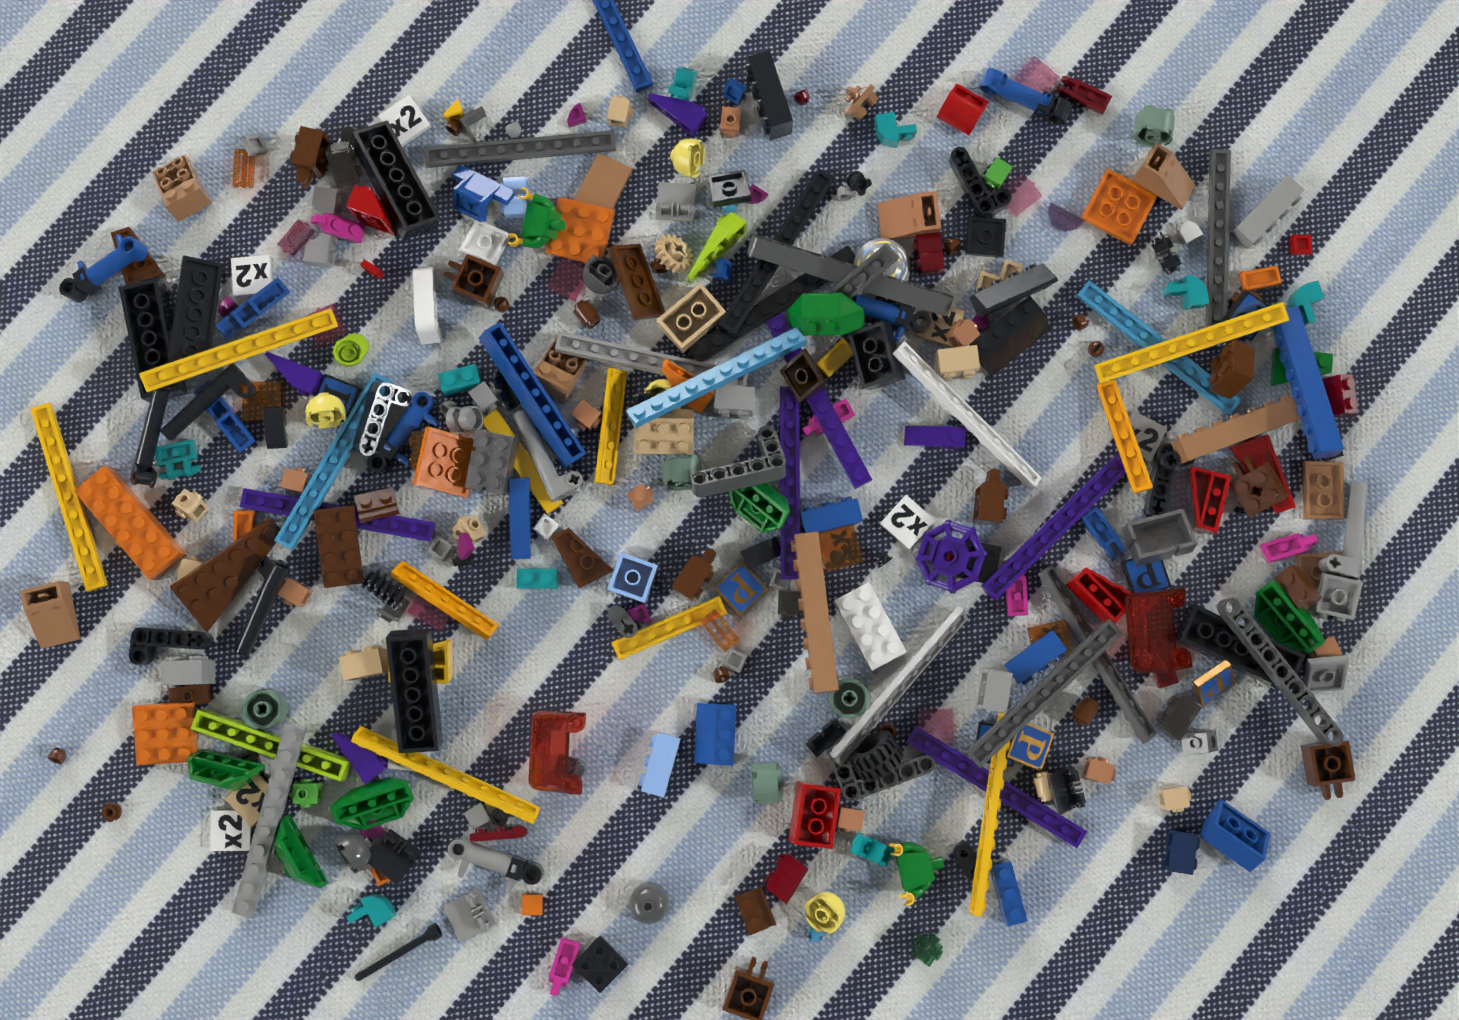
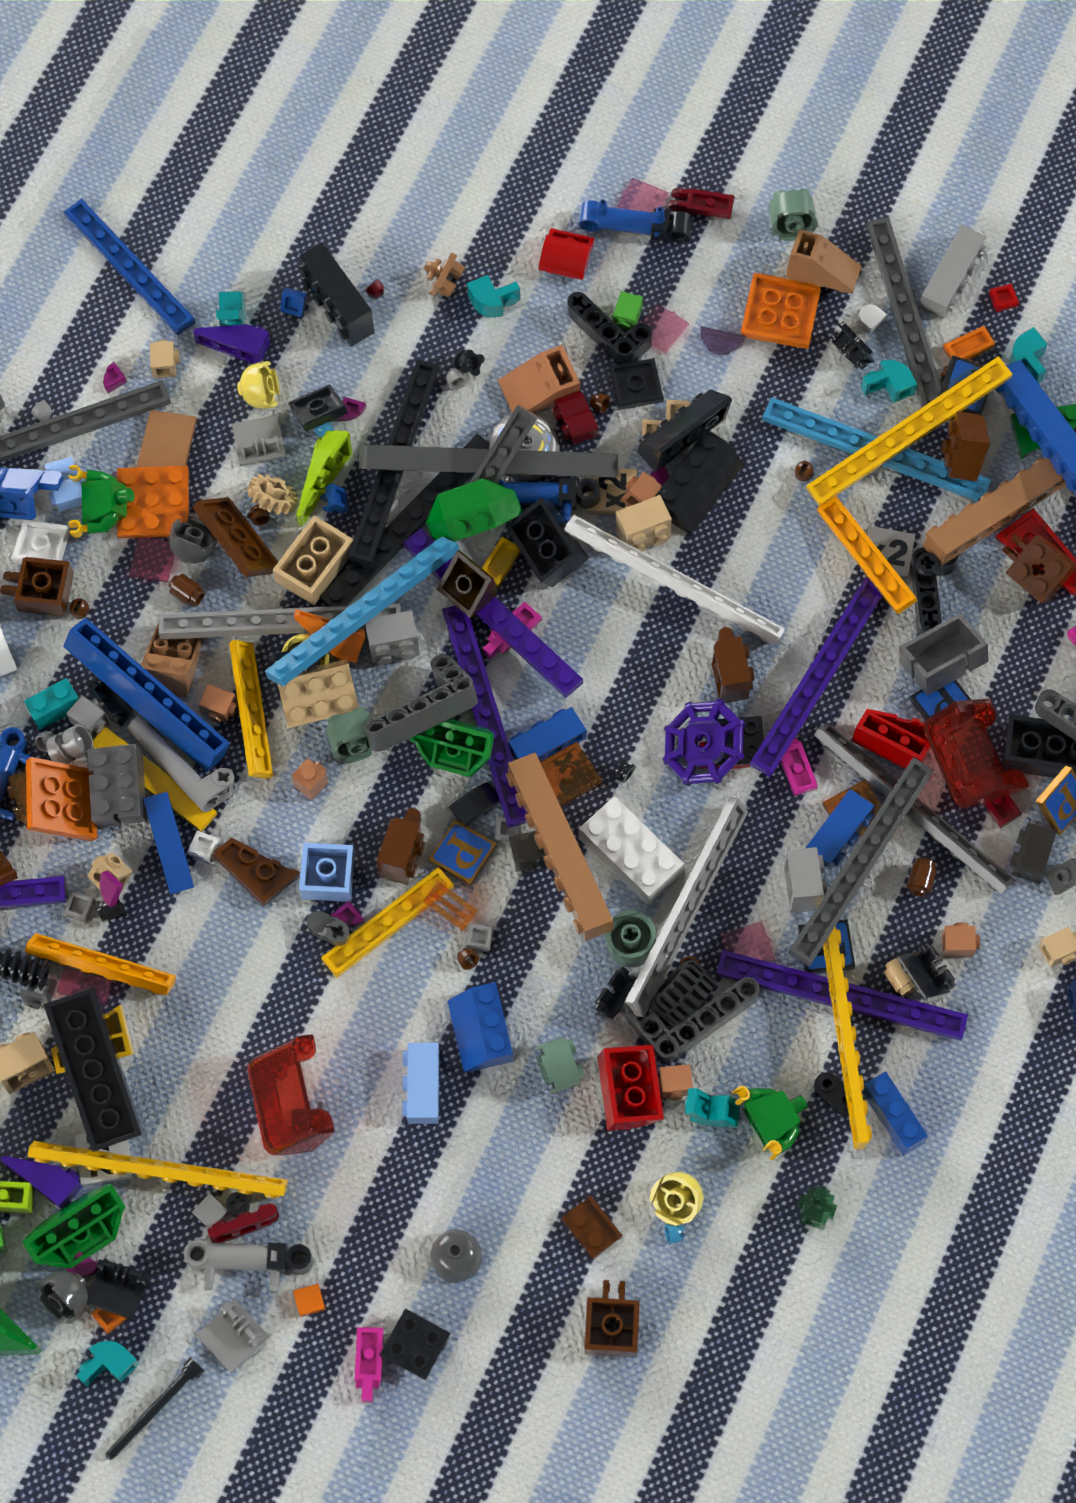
camera: 15 degrees left, 15 degrees down
(537, 579) = (209, 907): teal piece -> none
(730, 122) = (298, 336): nougat brick -> none
(786, 876) = (617, 1170): dark red slope -> none
(907, 522) = (640, 722): white tile -> none
(935, 437) = (645, 616): dark purple slope -> none
(1030, 746) = (866, 935): tile -> none
(1080, 322) = (776, 446): reddish brown hinge -> none
(1102, 532) = (876, 670): blue hinge -> none
(1207, 498) = (986, 595): red wedge -> none

